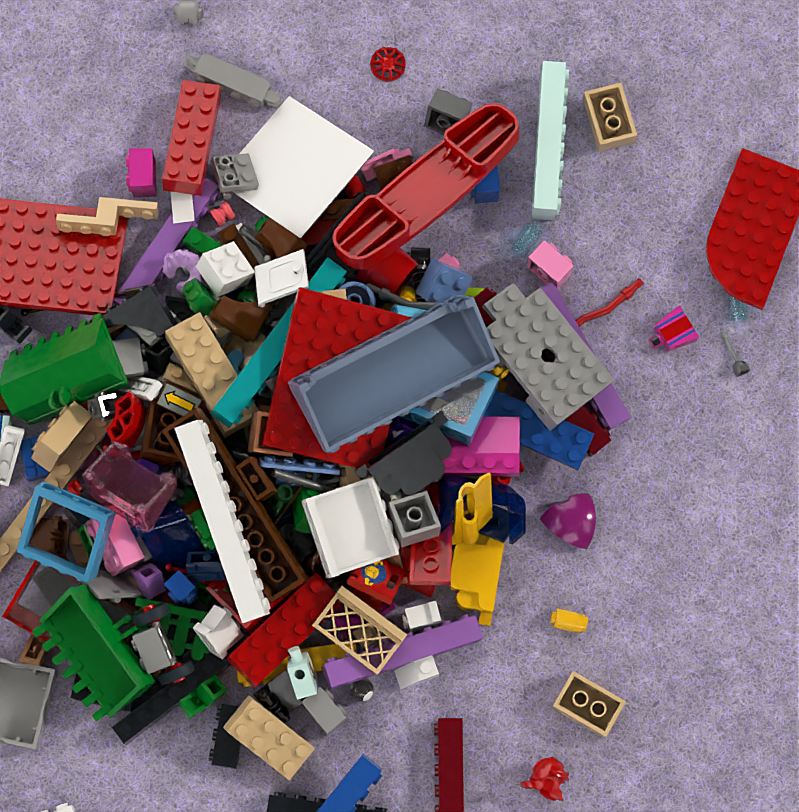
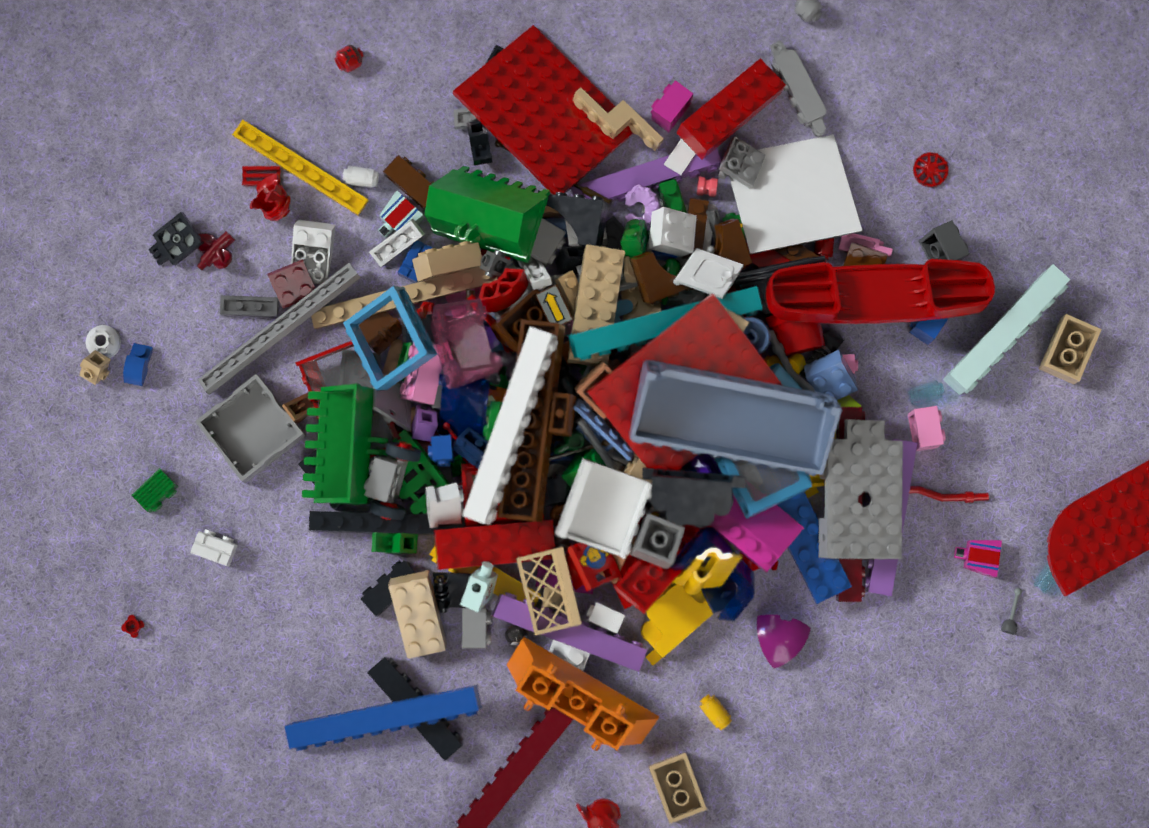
camera: 40 degrees right, 5 degrees up
(428, 699) = (558, 684): none -> orange piece

